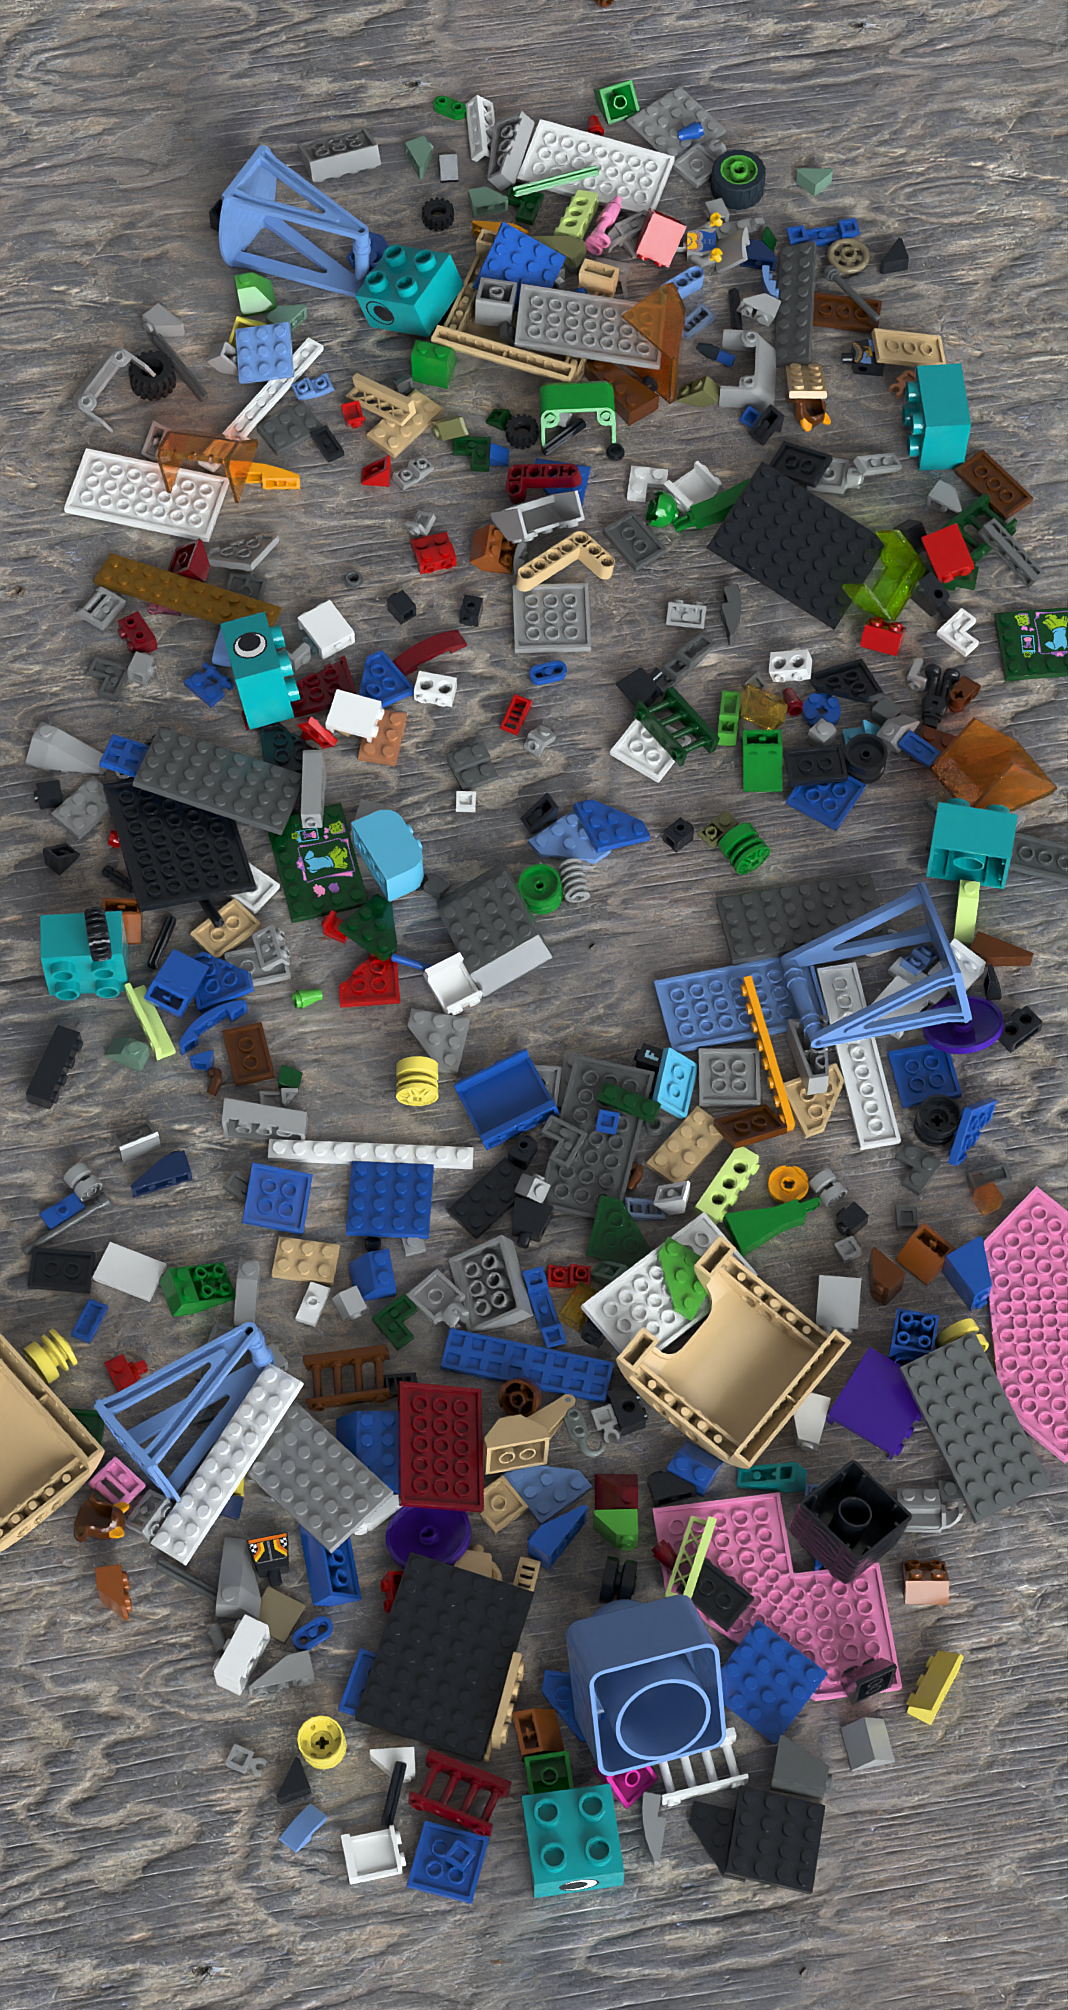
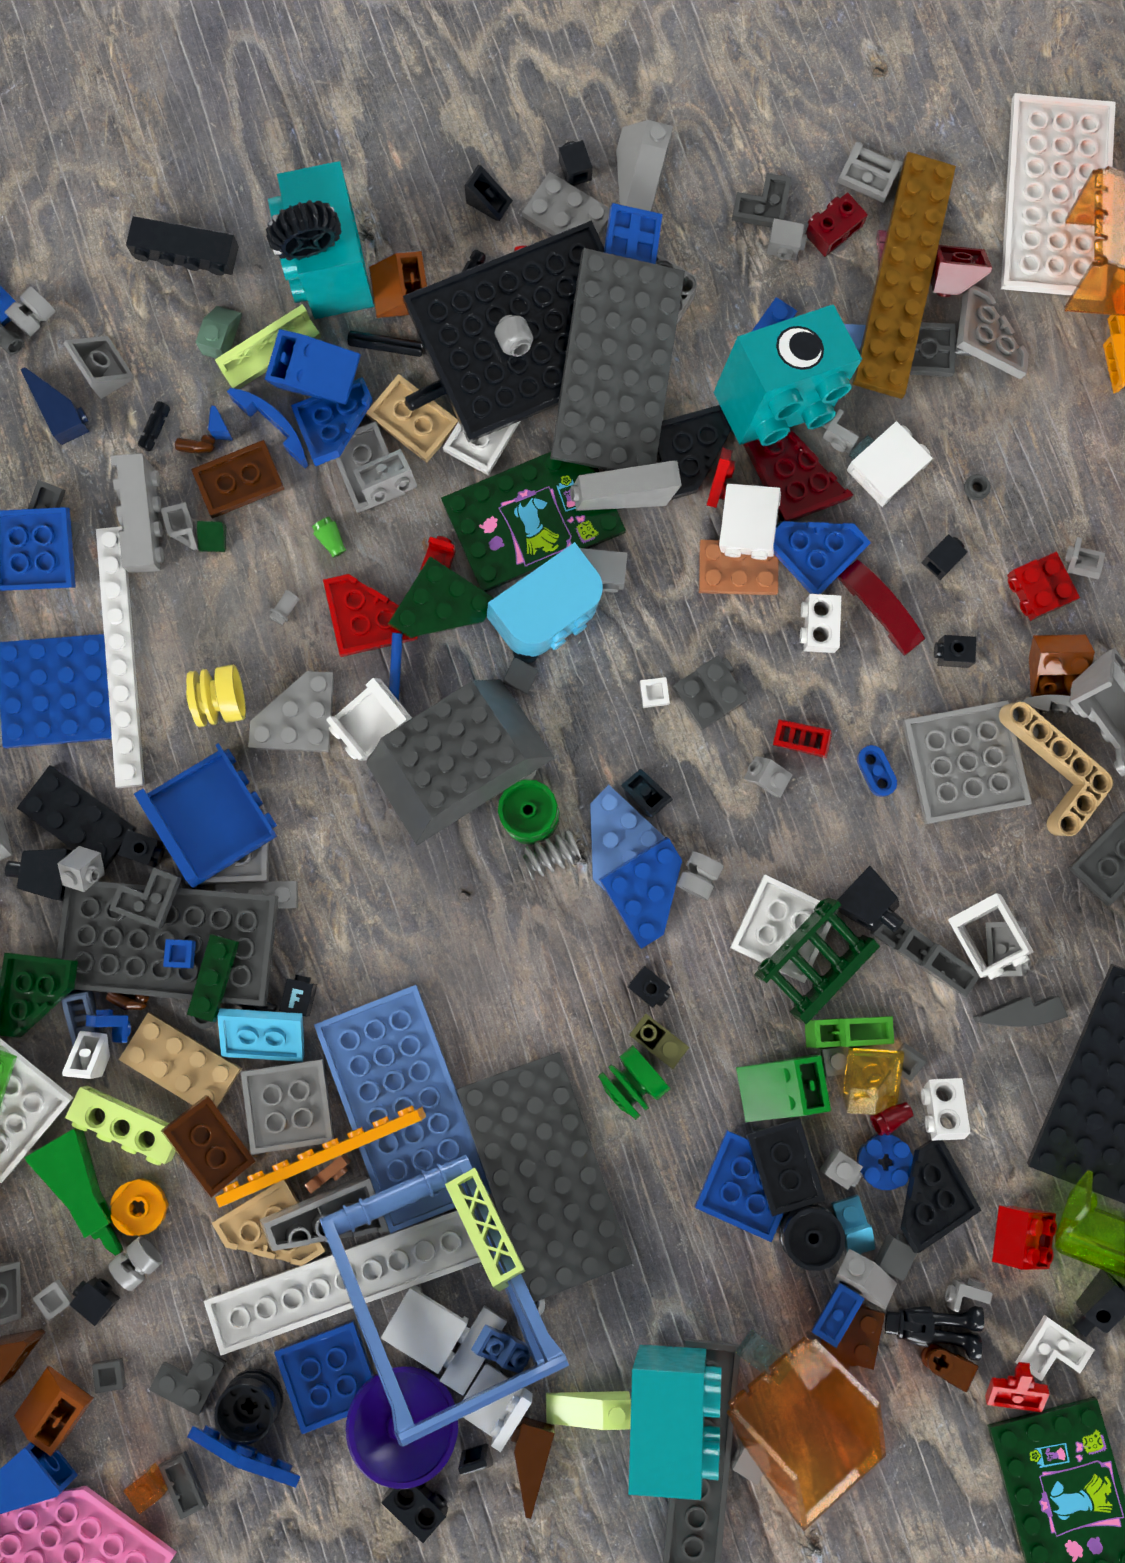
camera: 80 degrees right, 20 degrees up
(185, 840) = (514, 335): none -> light grey head
(193, 1109) = (153, 426): none -> black axle
(355, 1035) = (284, 607): none -> light grey pin
(602, 788) = (700, 875): none -> light grey wheel
(651, 1184) = (104, 1018): none -> blue bracket
(694, 604) = (977, 911): none -> white window
(780, 1053) = (334, 1170): none -> nougat plate
(836, 946) = (478, 1235): none -> yellowish green fence
(983, 655) = (1018, 1391): none -> red hinge

